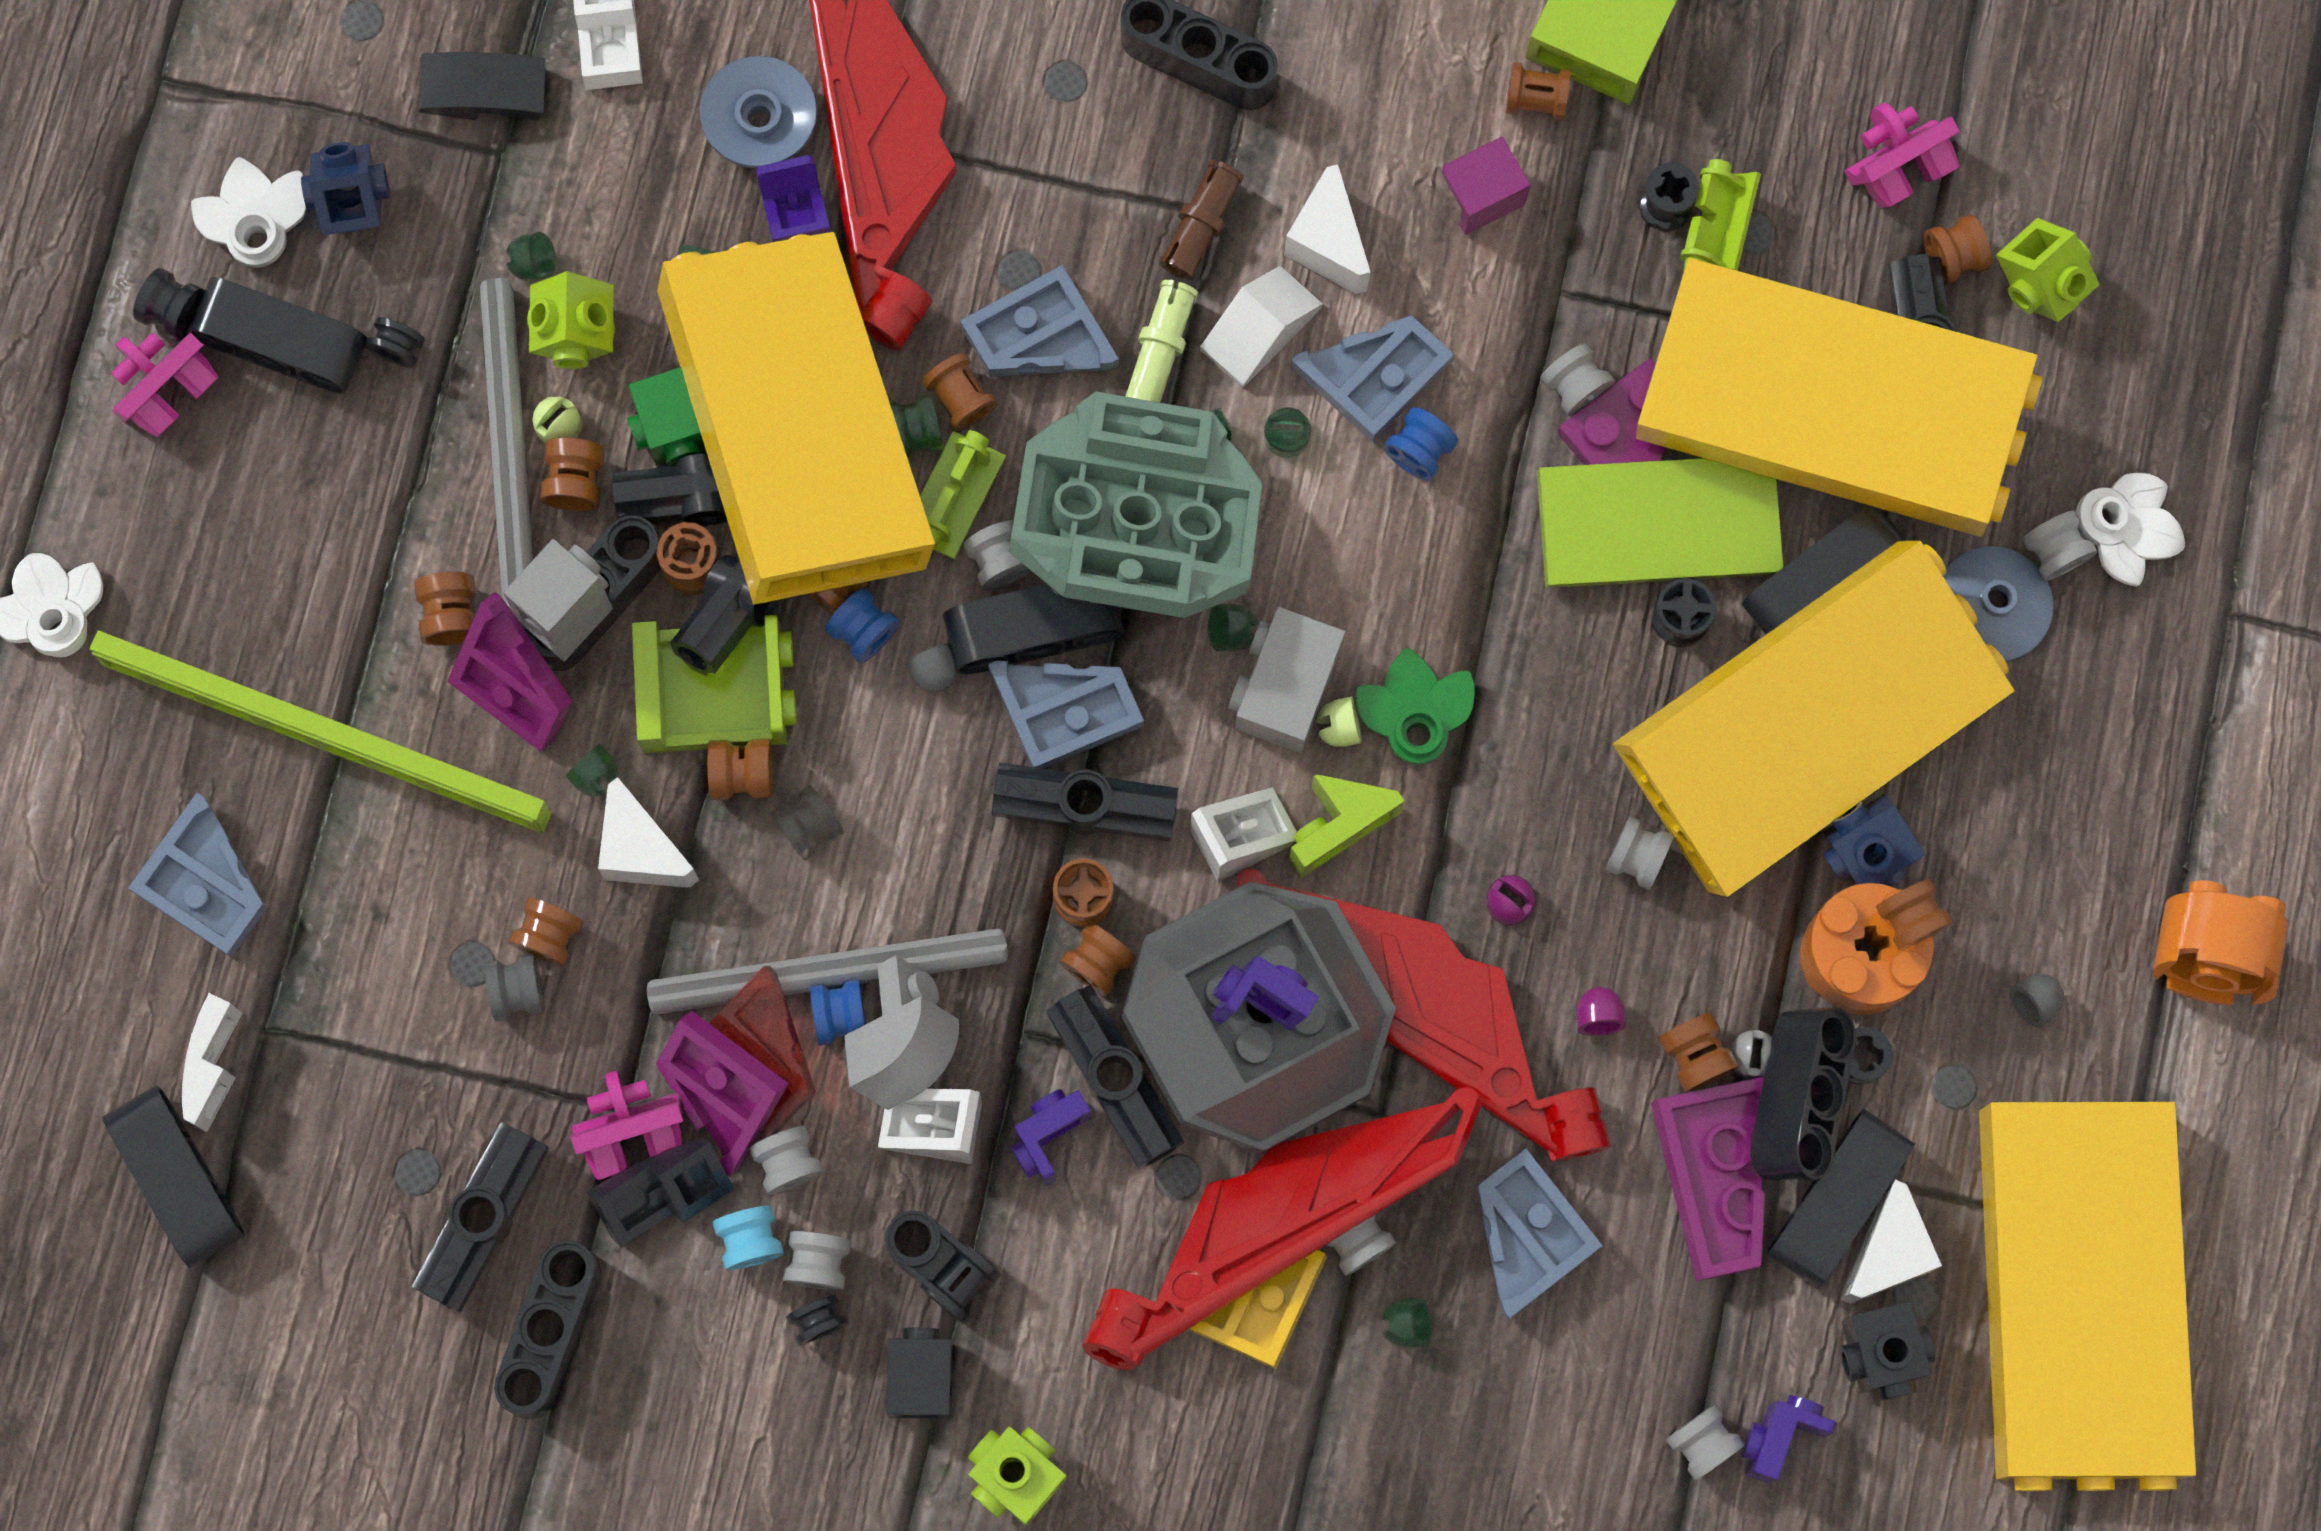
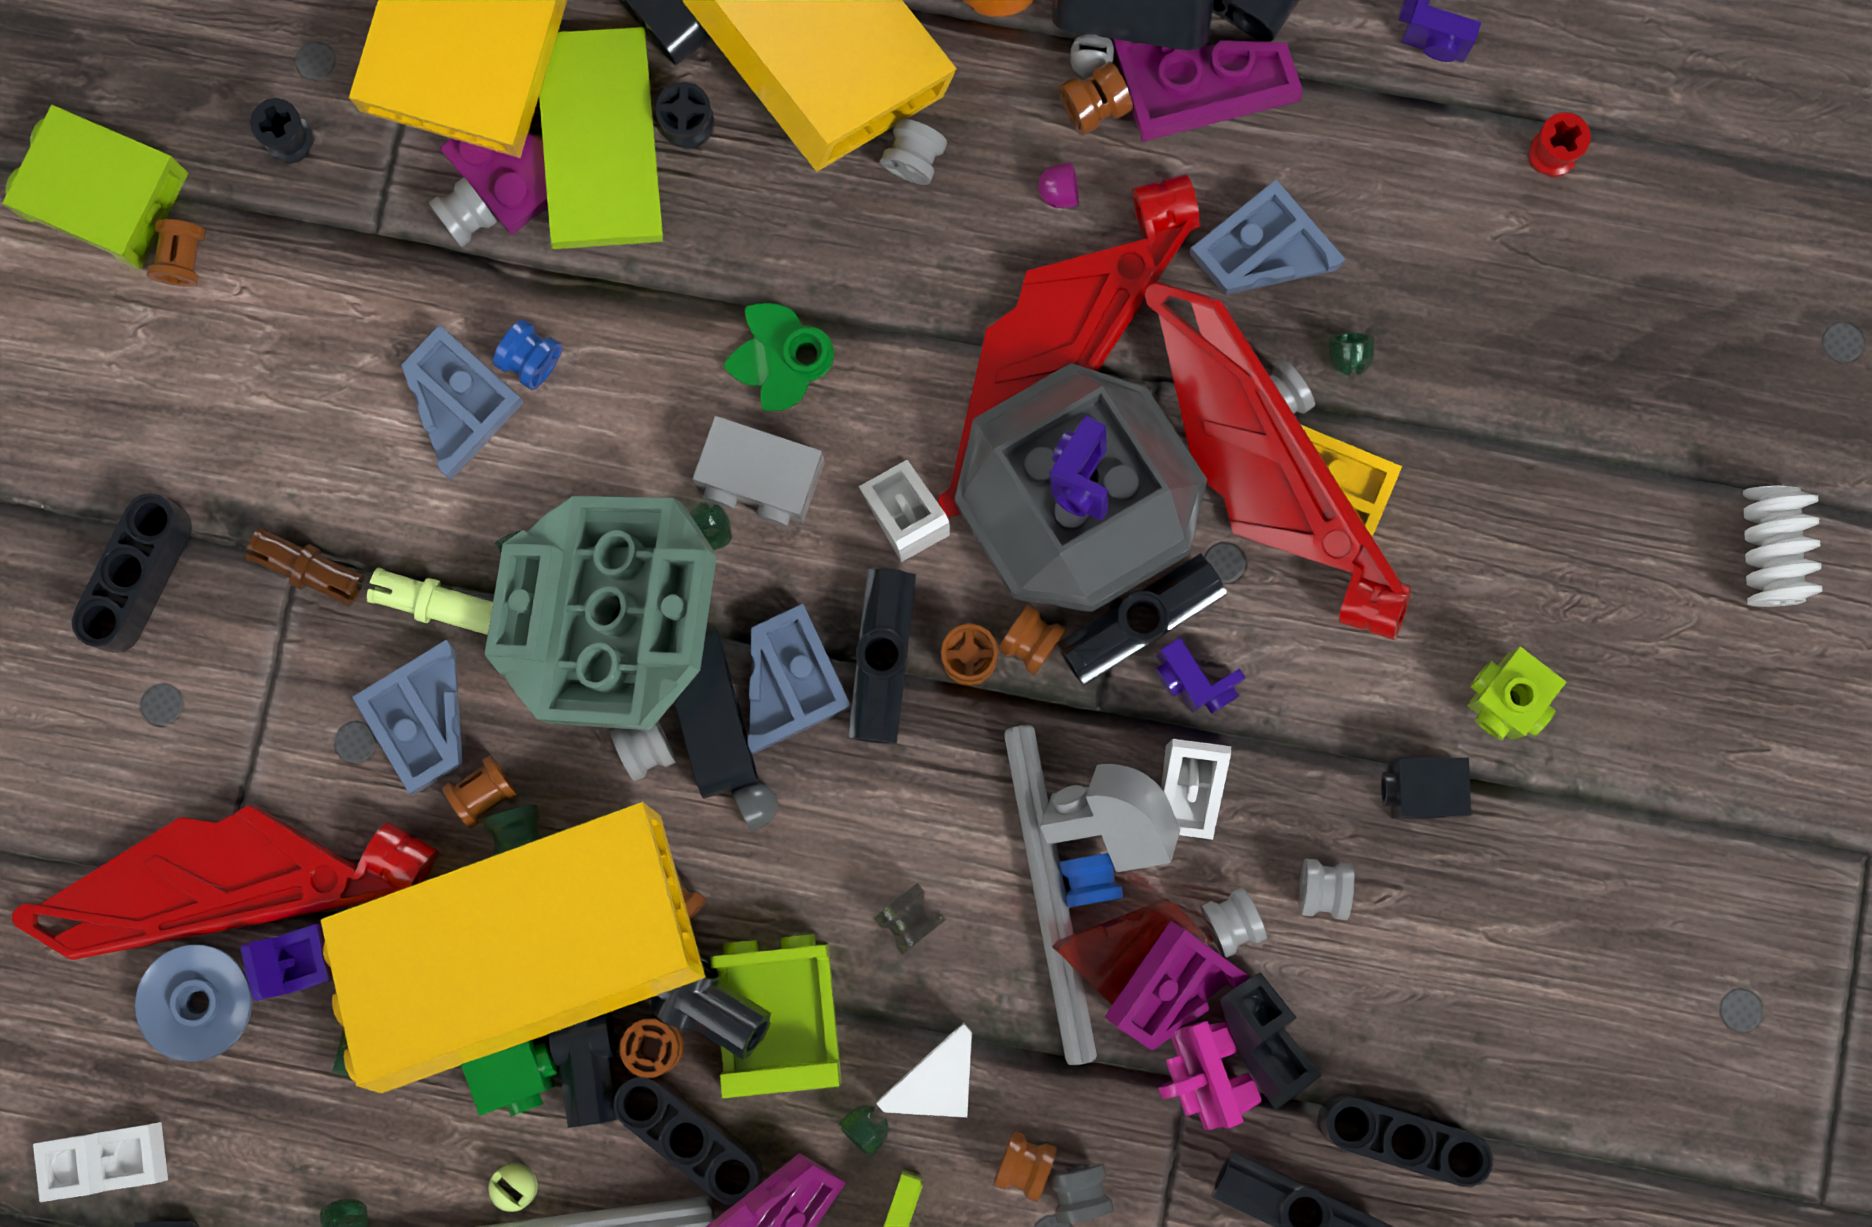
camera: 85 degrees left, 5 degrees up
(560, 597) = (706, 1168): light grey brick -> none
(571, 319) = (411, 1178): lime brick -> none
(572, 474) = (568, 1168): dark orange wheel -> none
(740, 769) = (859, 986): dark orange wheel -> none
(748, 1238) = (1308, 954): medium azure wheel -> none
(817, 1319) = (1380, 886): black bush -> none
(862, 625) = (715, 875): blue wheel -> none
(941, 1264) = (1326, 768): black piece -> none
(959, 489) = (574, 788): lime hinge -> none
(1259, 324) = (410, 509): white slope -> none
(1287, 442) = (526, 482): clear green hinge -> none
(1327, 235) = (321, 443): white slope -> none
(1344, 723) = (797, 420): yellowish green hinge -> none
(1355, 812) = (887, 407): lime slope -> none
(1486, 184) = (268, 296): magenta panel -> none
(1504, 909) = (966, 276): magenta hinge -> none
(1705, 1442) = (1444, 90): light grey wheel -> none
(1726, 214) = (304, 82): lime hinge -> none

